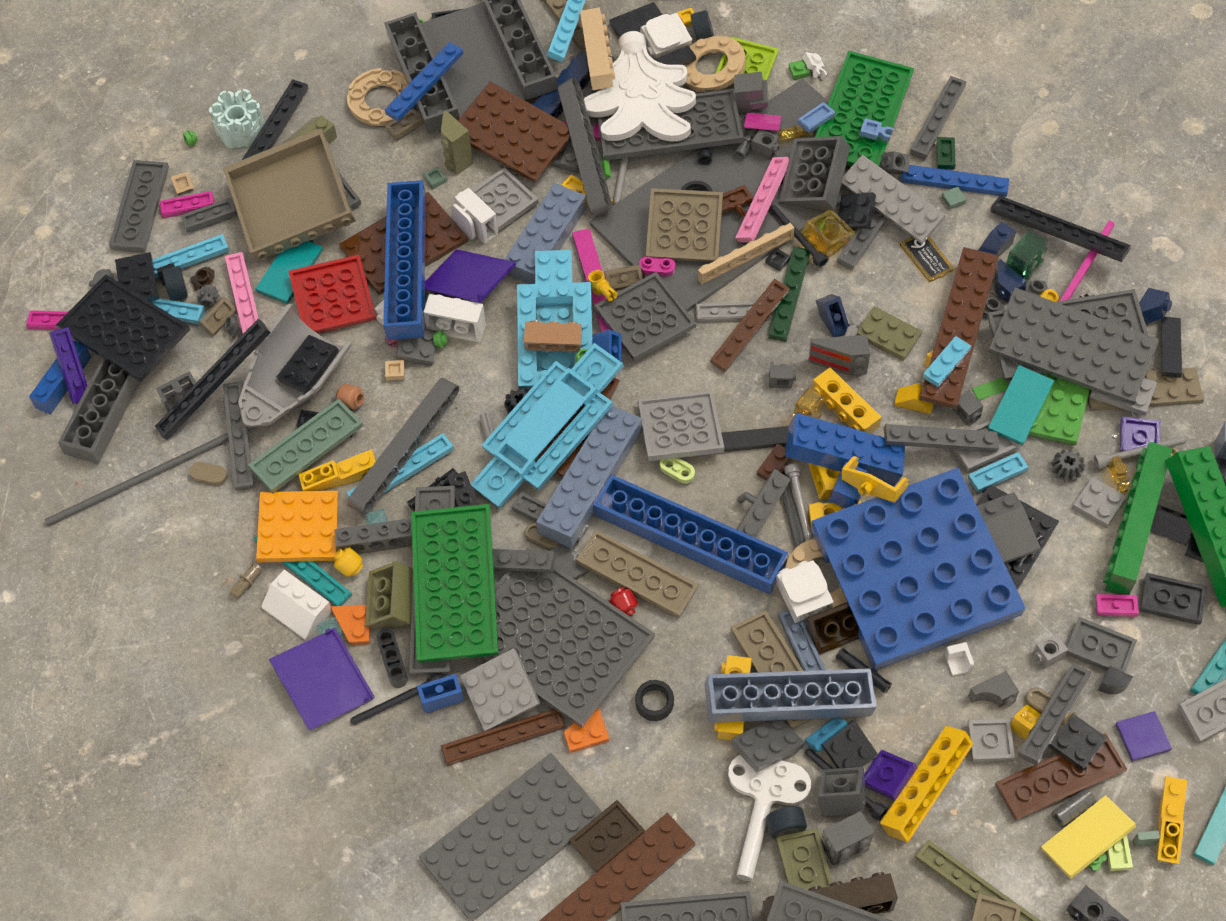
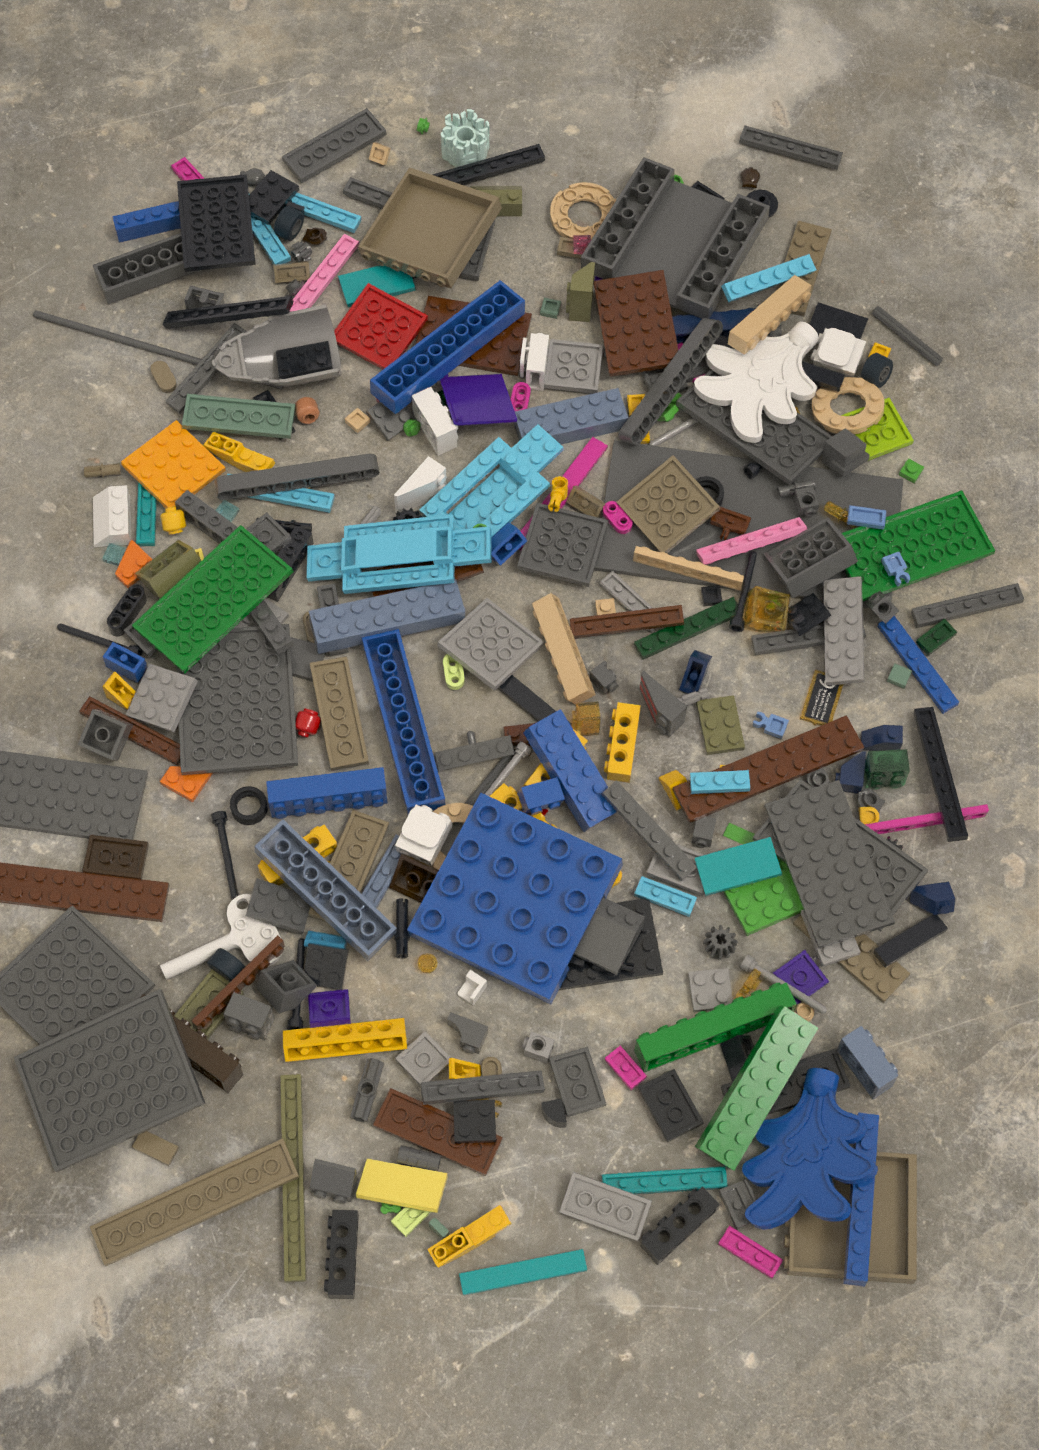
camera: 45 degrees right, 5 degrees up
(69, 363) = (159, 215): dark purple tile -> none
(185, 204) = (366, 172): dark pink tile -> none
(322, 679) = (70, 580): dark purple container -> none
(410, 118) = (580, 243): none -> clear pink plate
(424, 81) = (614, 227): blue plate -> none
(462, 718) = (118, 691): none -> yellow slope
(492, 757) = (105, 734): none -> dark grey brick
(493, 249) = (519, 400): none -> dark pink plate
(502, 361) = (421, 485): none -> white slope
(553, 336) = (475, 496): medium nougat brick -> none
(647, 731) = (219, 819): none -> black piece
(701, 632) = (327, 792): none -> blue brick
(721, 331) = (605, 606): none -> tan plate
(732, 381) = (563, 649): none -> tan brick
(762, 121) = (824, 483): dark pink tile -> none
(811, 814) = (245, 977): none -> reddish brown plate
(815, 63) = (927, 477): white plate -> none
(870, 484) = (543, 806): yellow piece -> none
(909, 675) = (427, 963): none -> clear yellow plate
(922, 300) = (773, 725): none -> medium blue plate
(991, 811) = (370, 1078): none -> dark grey piece
(1044, 884) = (333, 1181): none -> dark grey slope
(1143, 736) = (528, 1168): dark purple tile -> none

